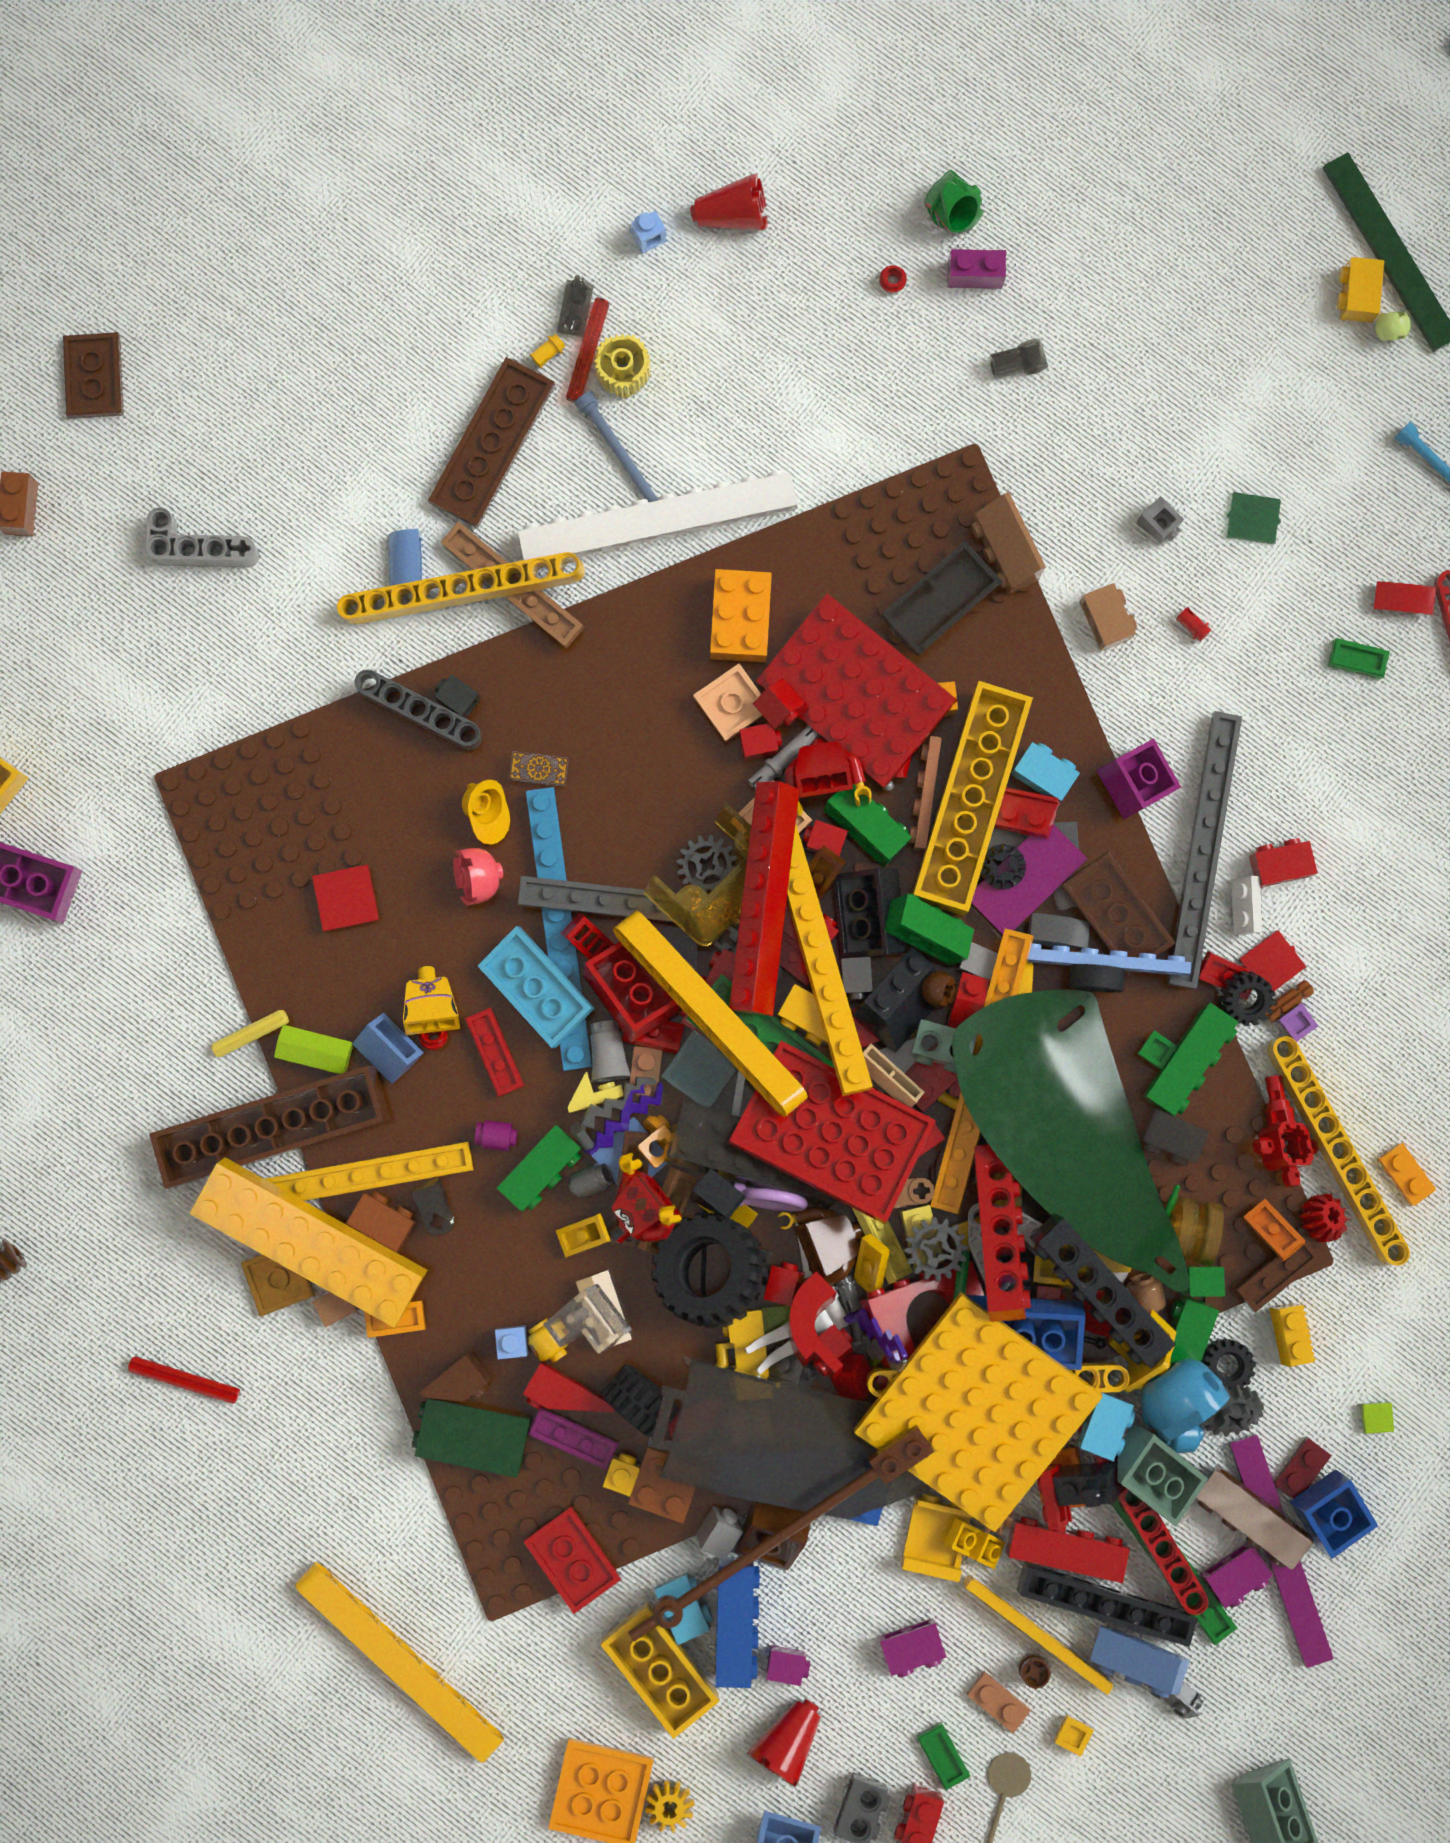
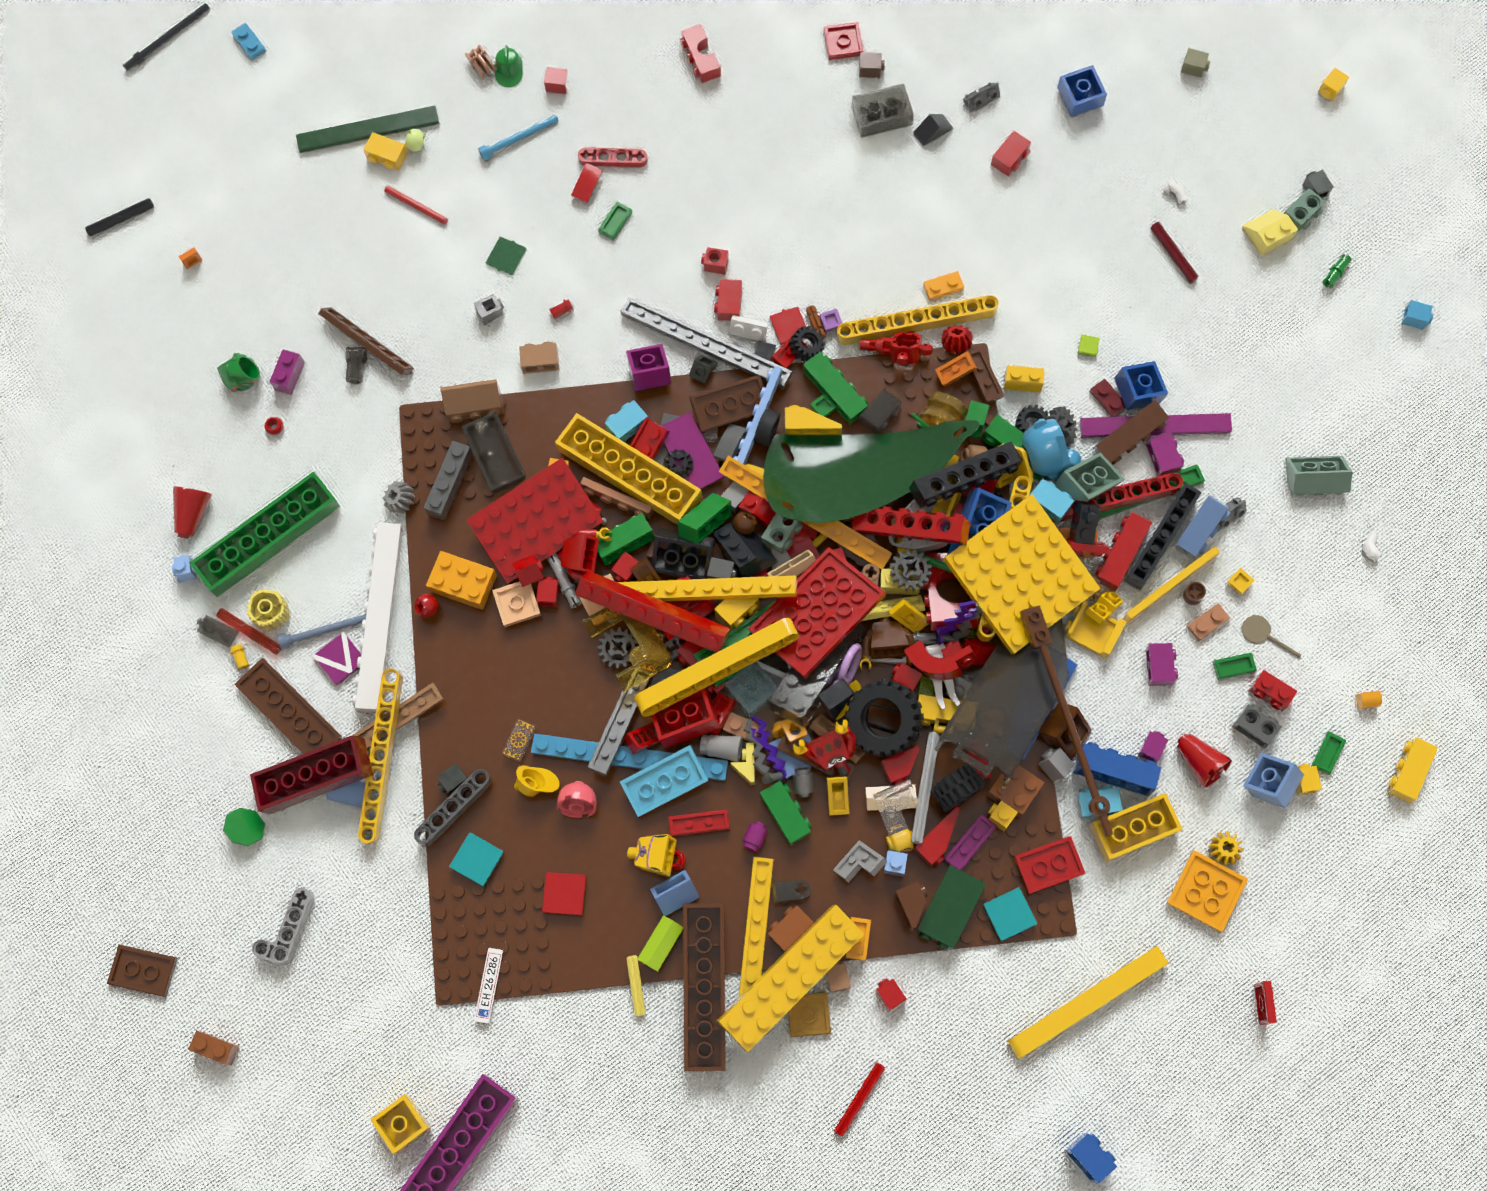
camera: 65 degrees left, 10 degrees down
(182, 1724) = (1091, 1157): none -> blue brick
(197, 835) = (488, 985): none -> white sticker
(315, 439) = (243, 827): none -> green piece
(334, 1383) = (890, 994): none -> red brick
(359, 765) = (476, 859): none -> teal tile
(406, 505) = (311, 774): none -> dark red brick
(488, 1521) = (1009, 914): none -> teal tile
(504, 1286) = (859, 857): none -> light grey plate
(585, 485) = (338, 658): none -> magenta tile
(630, 1355) = (925, 788): none -> light grey axle
(649, 1312) = (899, 766): none -> red slope
(690, 579) = (426, 605): none -> red piece
(728, 323) = (264, 534): none -> green brick
(837, 488) = (398, 497): none -> light grey gear
(881, 549) = (448, 480): none -> dark grey brick
(1058, 363) = (366, 341): none -> reddish brown tile
(1107, 72) = (190, 258): none -> orange tile
(1124, 1032) = (806, 422): none -> yellow slope
(1164, 857) = (702, 368): none -> pearl dark grey bracket
(1219, 939) = (765, 350): none -> black tile
(1292, 362) = (440, 218): none -> red bar
(1331, 834) = (718, 267): none -> red brick

